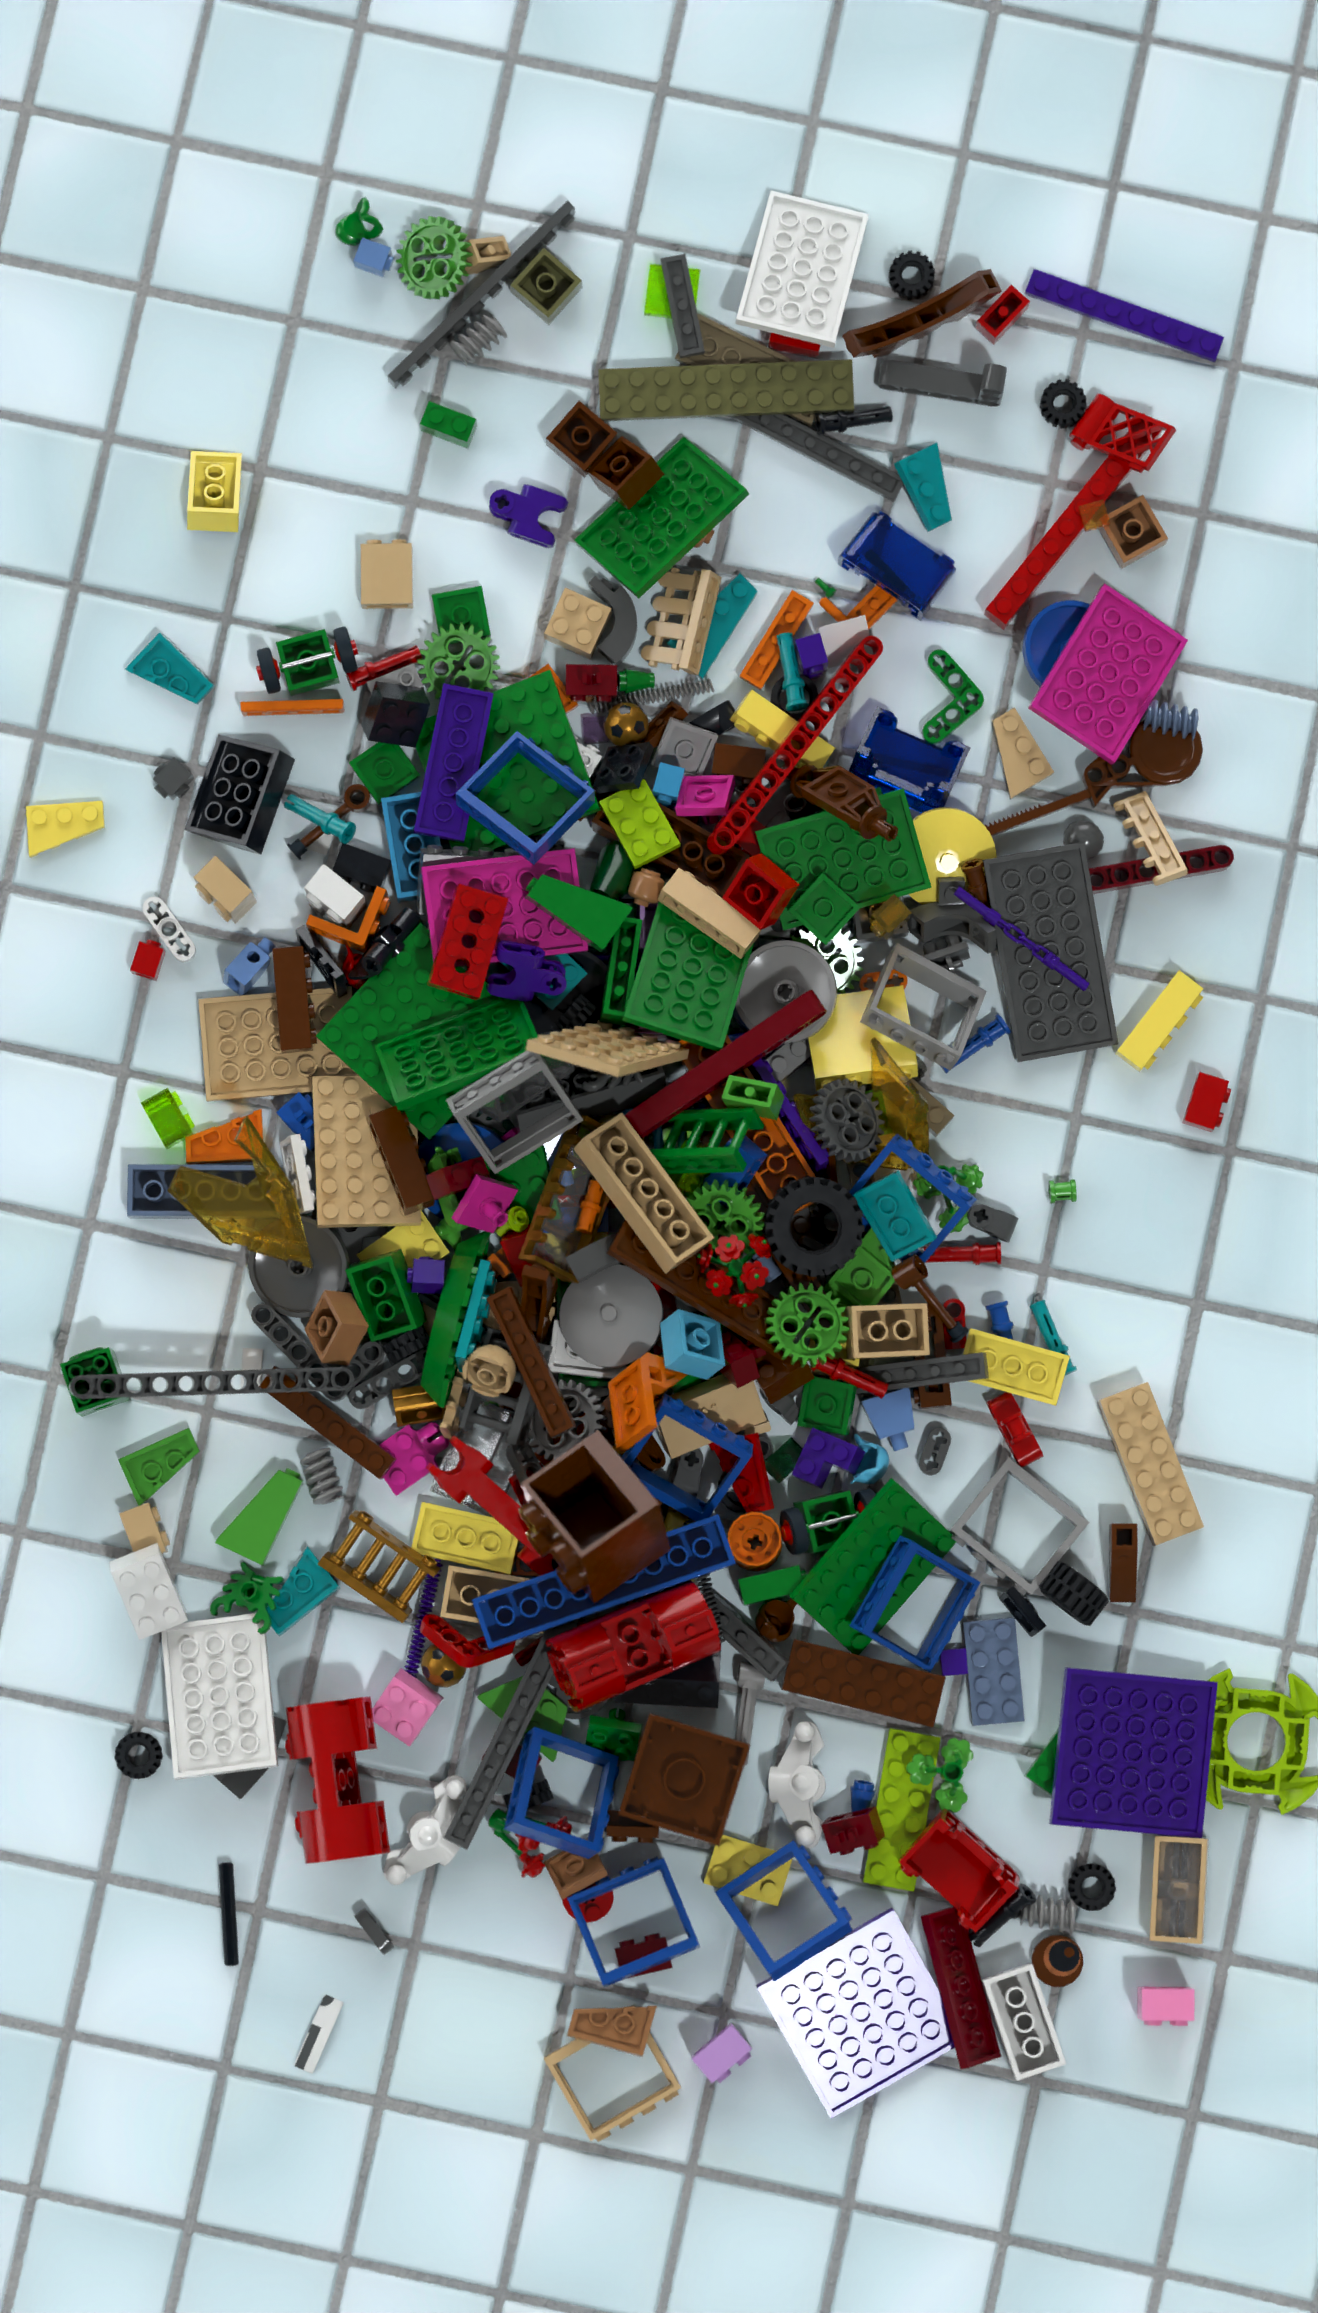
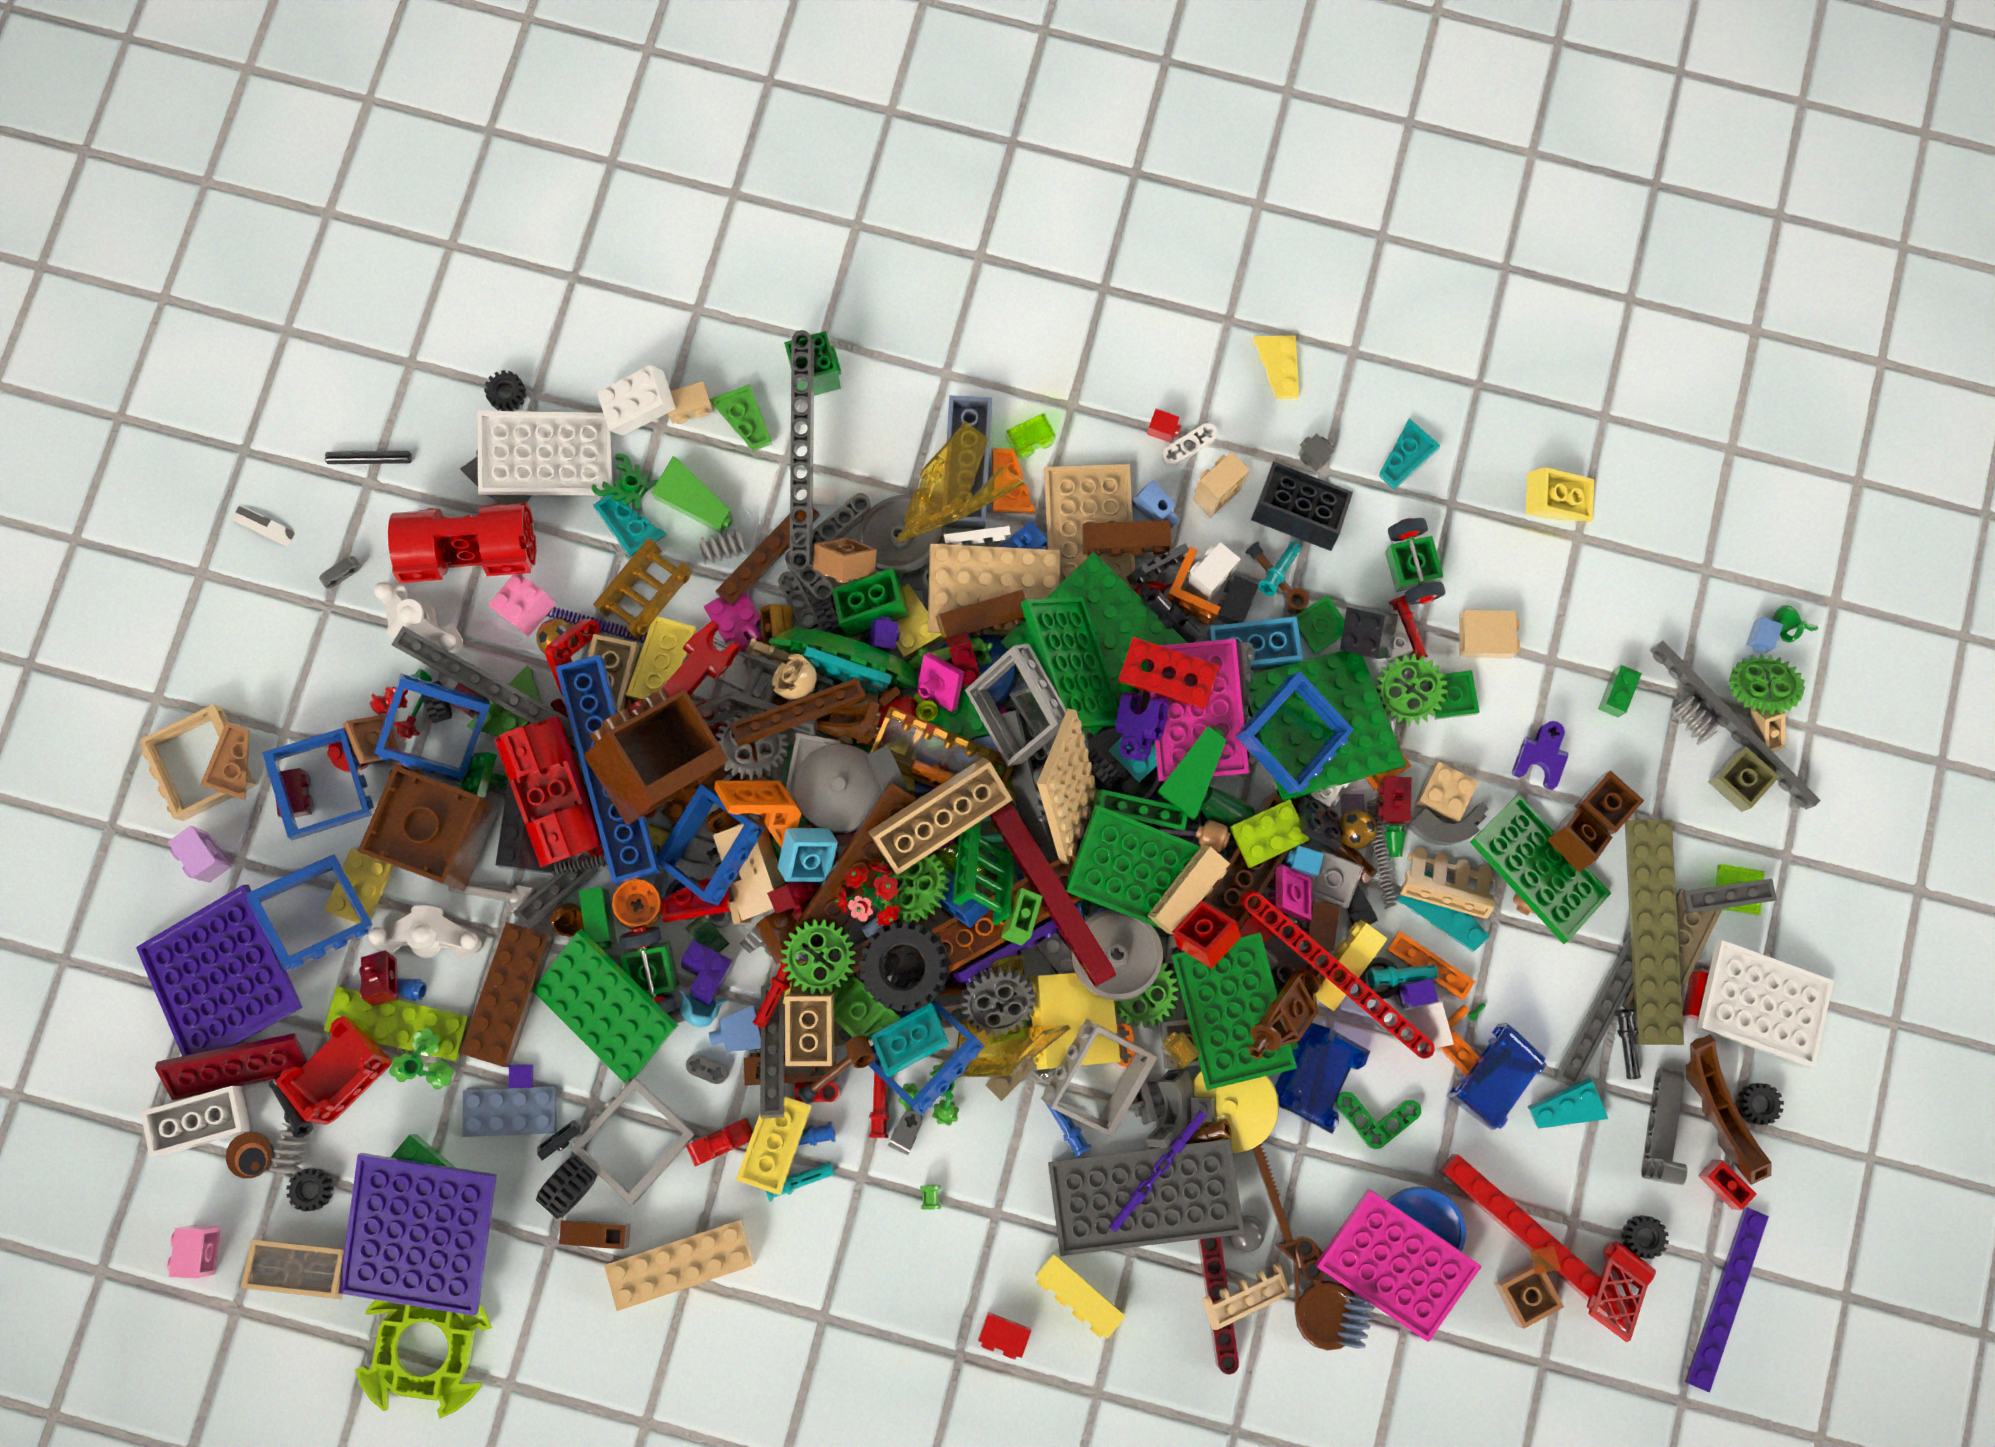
camera: 90 degrees right, 5 degrees down
(292, 707) = (1375, 551): orange tile -> none
(452, 760) = (1334, 677): dark purple plate -> none
(824, 908) = (1189, 991): green plate -> none
(827, 1405) = (751, 975): green plate -> none
(884, 1587) = (584, 1016): blue window -> none
(1020, 755) = (1325, 1179): tan wing -> none

